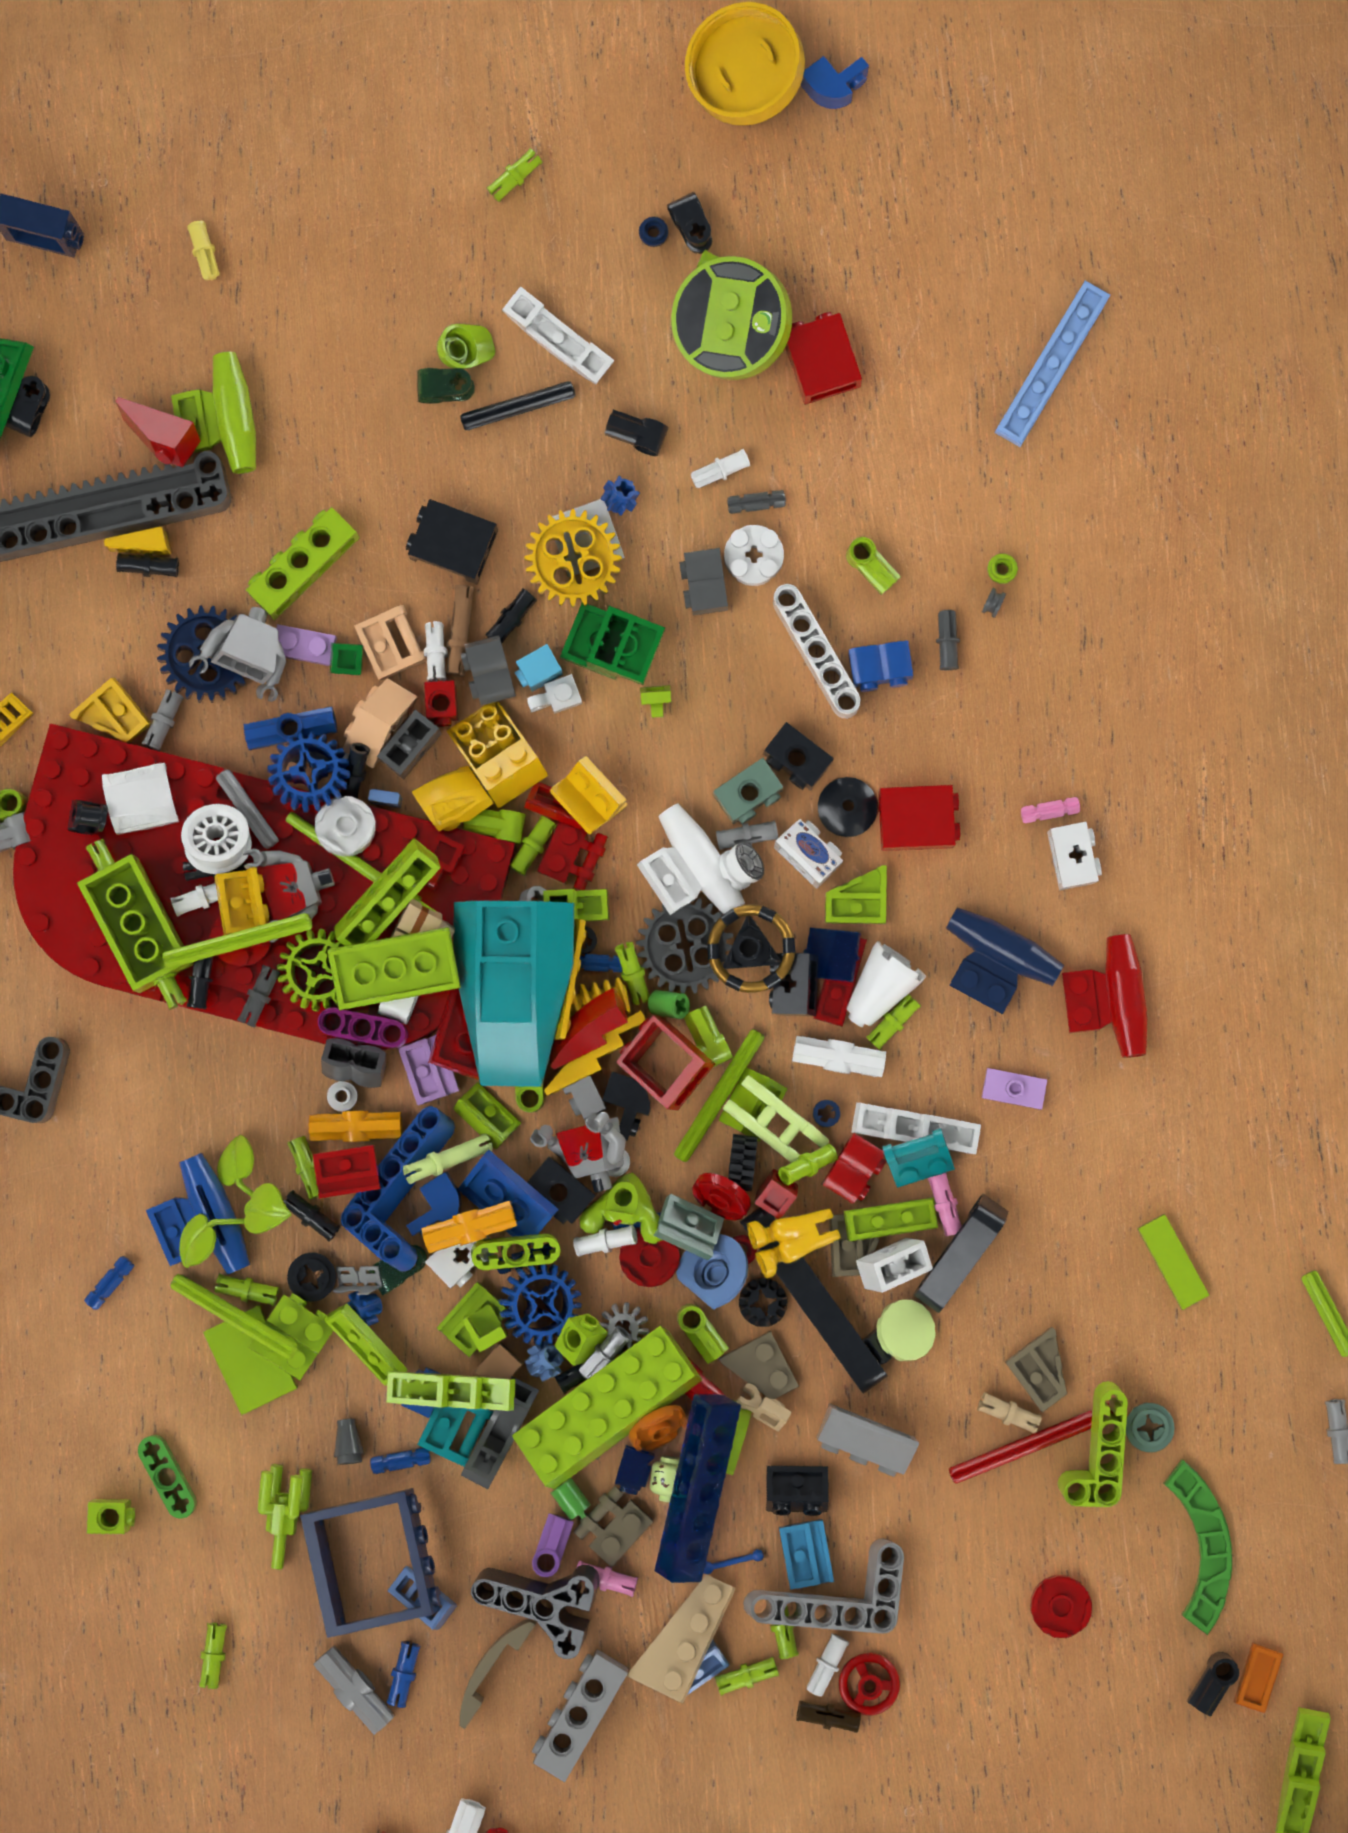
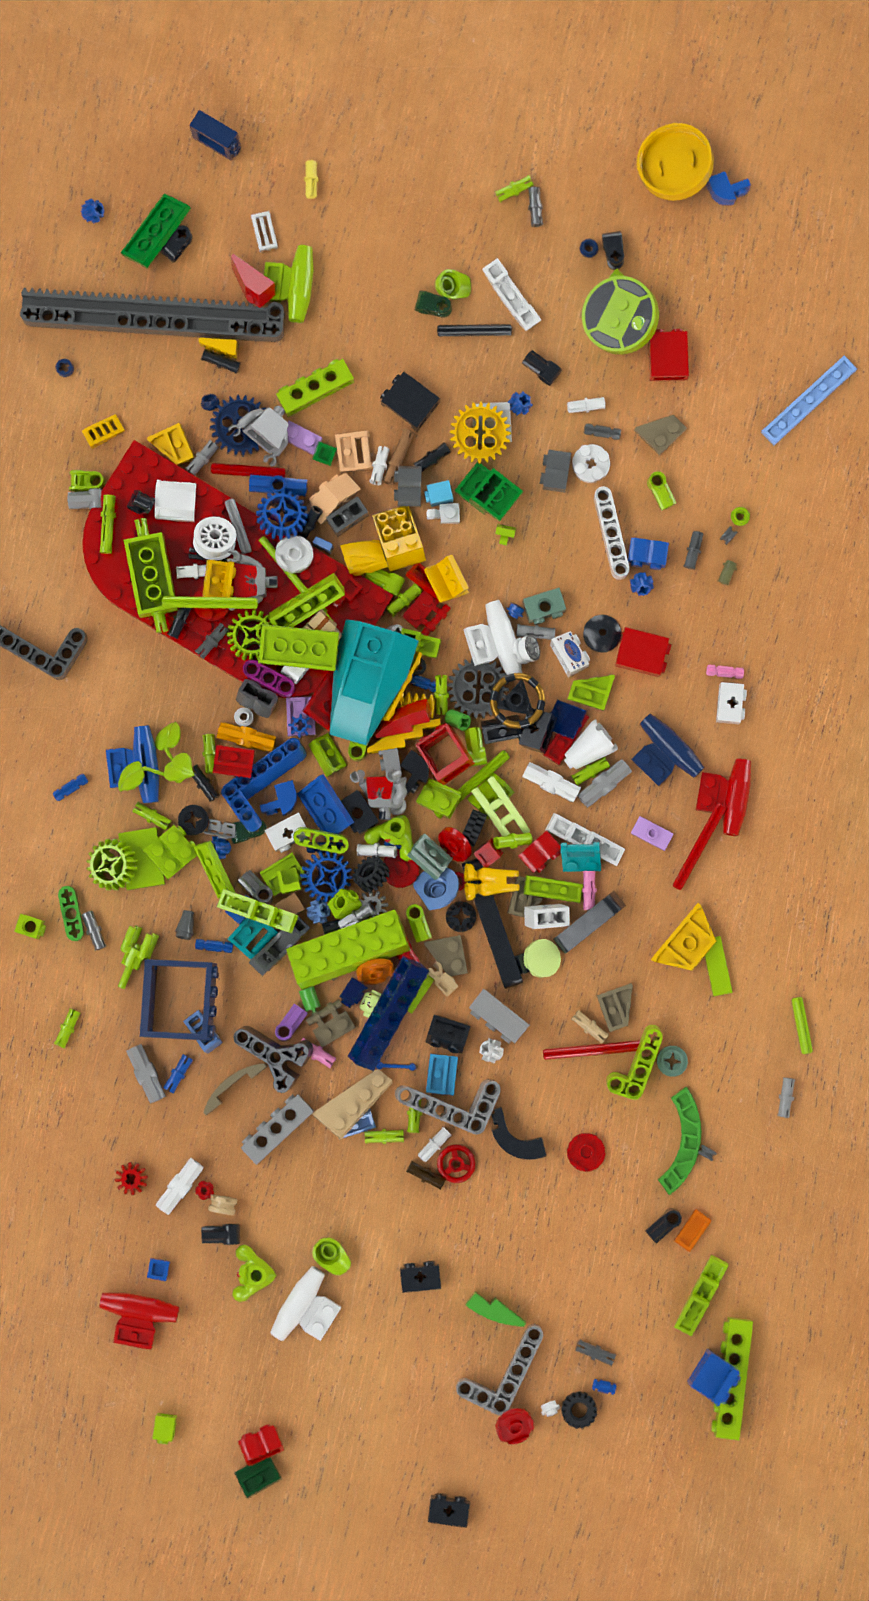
camera: 15 degrees right, 0 degrees up
(45, 858) = (107, 523): none -> lime pin
(149, 632) = (209, 402): none -> dark blue plate
(169, 370) = (268, 247): none -> white tile
(188, 1370) = (103, 852): none -> lime gear
(209, 1493) = (93, 930): none -> flat silver pin
(234, 1316) = (140, 828): lime axle -> none
(236, 719) = (246, 470): none -> red axle
(436, 1352) = (255, 887): none -> flat silver piece
(437, 1162) = (289, 773): yellowish green pin -> none
(438, 690) = (374, 488): red brick -> none
(439, 1090) = (296, 722): none -> blue gear
(469, 1226) = (297, 816): light orange piece -> none
(554, 193) = (535, 207): none -> flat silver pin
(594, 1282) = (371, 874): none -> black tyre
(676, 1132) = (439, 798): none -> lime plate
(706, 812) = (515, 611): none -> blue plate
(731, 1005) = (495, 732): none -> black slope
(789, 741) = (576, 583): black brick -> none
(821, 1105) = (532, 808): dark blue bush -> none
(845, 478) = (661, 433): none -> dark tan wing
(871, 1495) = (491, 1050): none -> white gear
(885, 714) = (641, 584): none -> blue gear
(920, 1034) = (604, 783): none -> light grey piece
(955, 1633) = (521, 1149): none -> black arch
(1009, 659) = (727, 572): none -> olive pin
(1092, 1088) = (699, 846): none -> red axle
(1119, 1239) = (688, 942): none -> yellow wing
(1245, 1552) = (707, 1153): none -> dark grey bush

